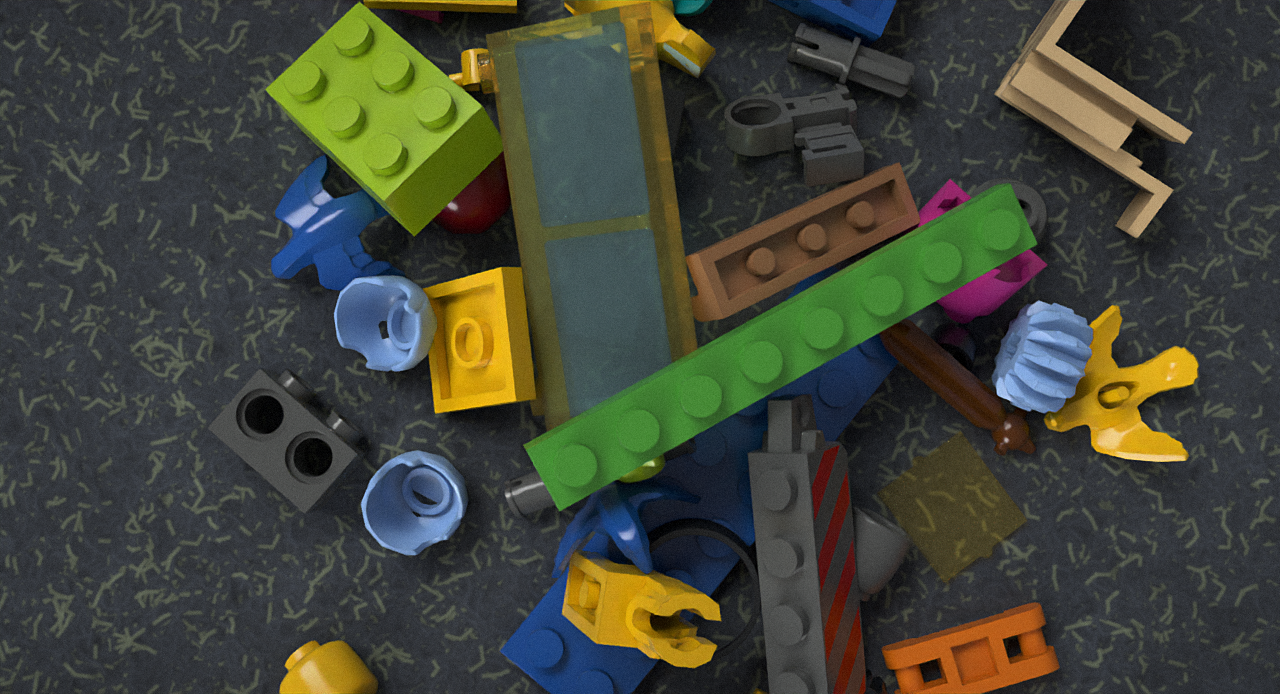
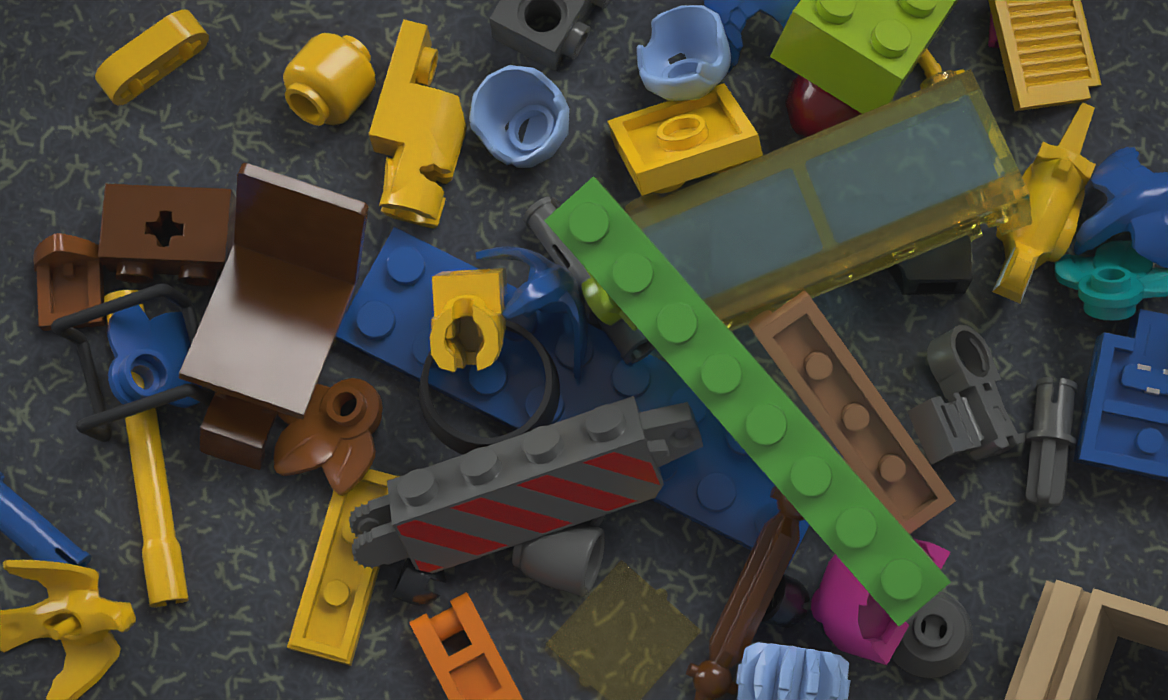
camera: 85 degrees right, 10 degrees down
(399, 608) = (418, 129): none -> yellow plate

